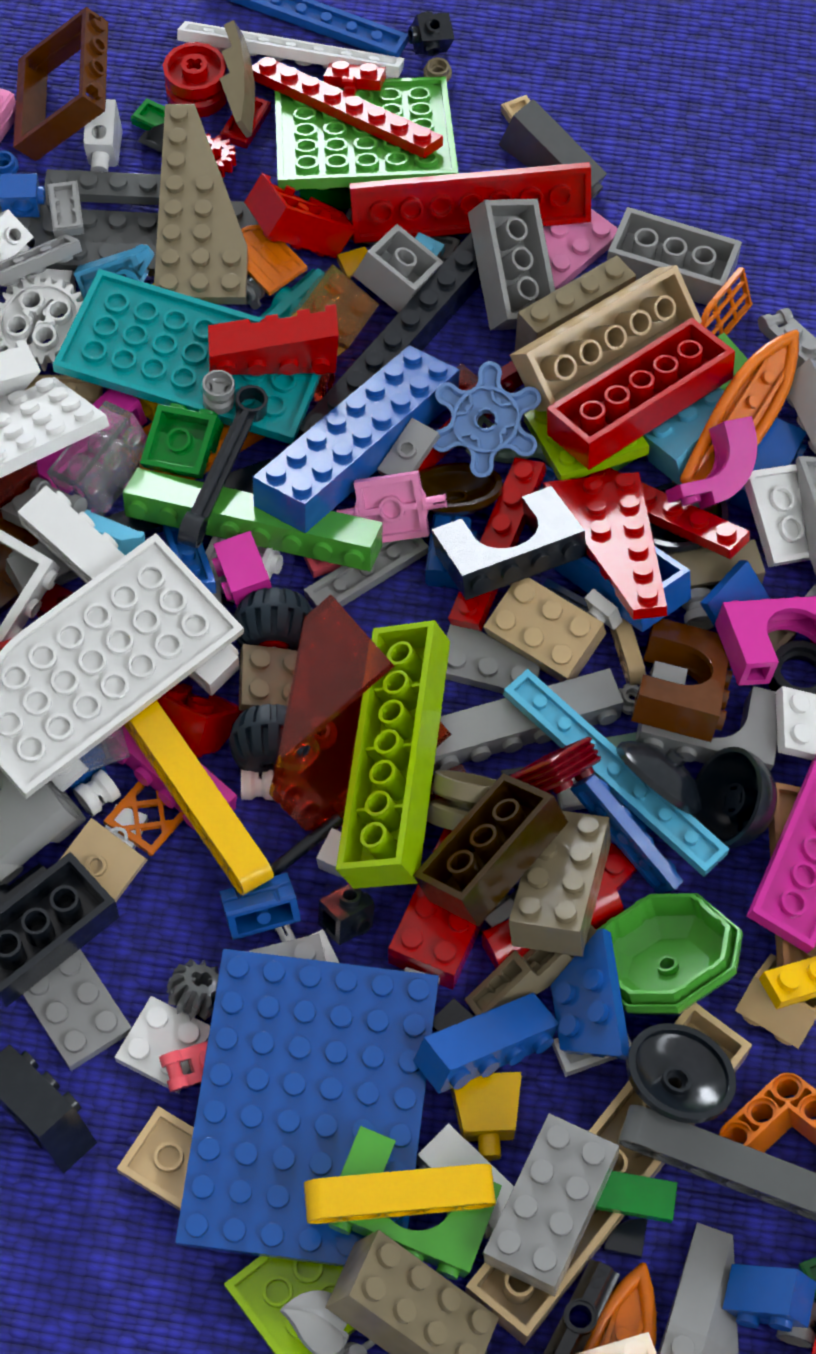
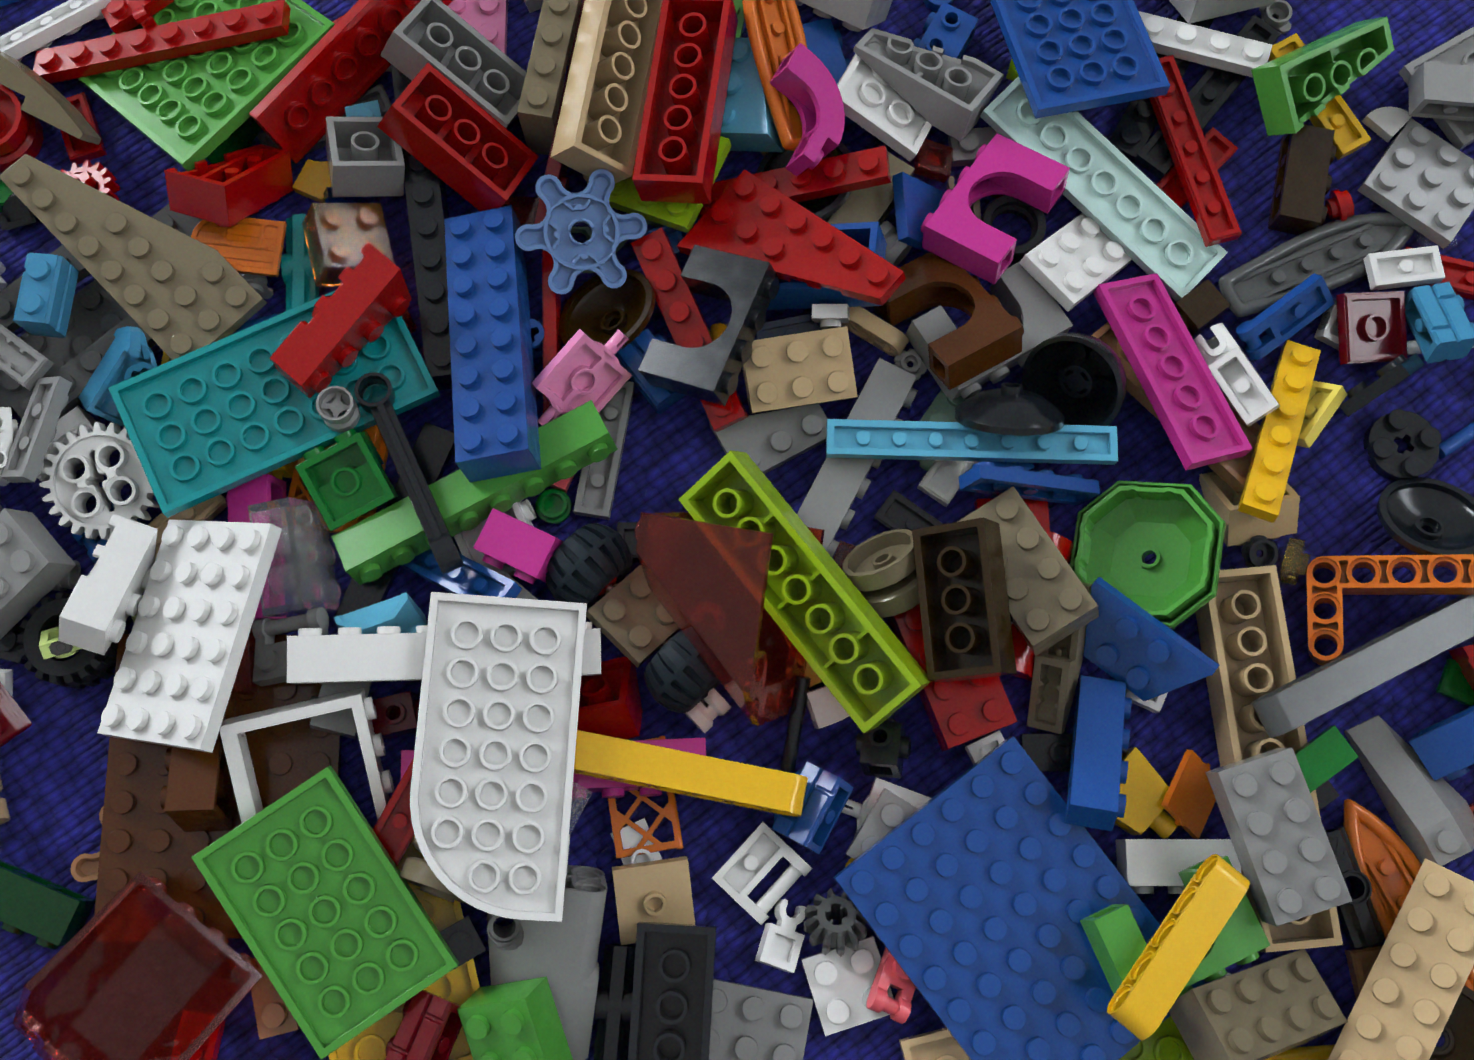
camera: 45 degrees left, 15 degrees up
(96, 792) = (587, 841): white wheel -> none
(120, 191) = (46, 295): none -> dark azure brick
(149, 971) = (779, 941): none -> white plate
(184, 907) = (752, 864): none -> white plate
(296, 577) = (553, 506): none -> green plate
(409, 449) = (544, 316): light grey plate -> none
(465, 302) = (457, 140): none -> red brick
(517, 1139) = (1190, 795): none -> orange piece
(560, 766) = (937, 485): dark red brick -> none
(684, 1059) = (1276, 628): black dish -> none
(757, 1026) = (1268, 549): none -> black plate
(775, 1063) = (1294, 561): none -> clear yellow plate
(789, 581) = (934, 161): none -> clear red plate

